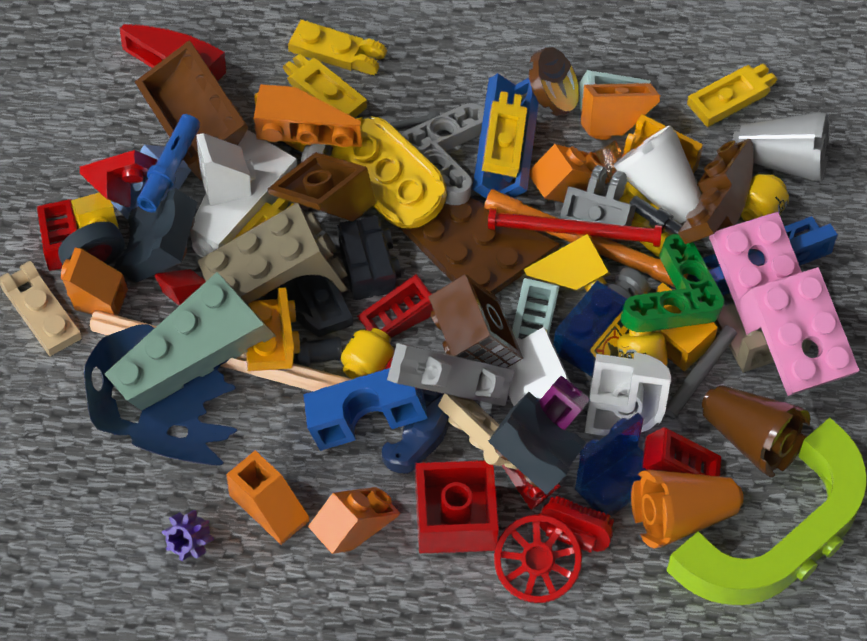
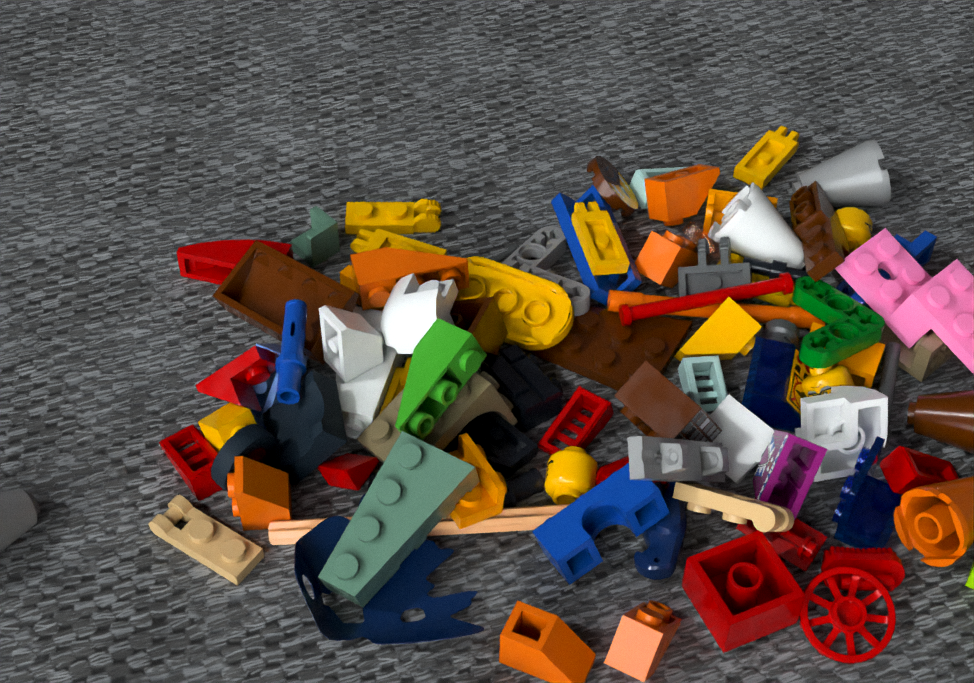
camera: 20 degrees left, 10 degrees down
(256, 53) = (319, 241): none -> sand green panel
(271, 230) = (436, 375): none -> bright green slope
(290, 164) = (414, 309): none -> white brick
(536, 444) = (808, 498): black brick -> none

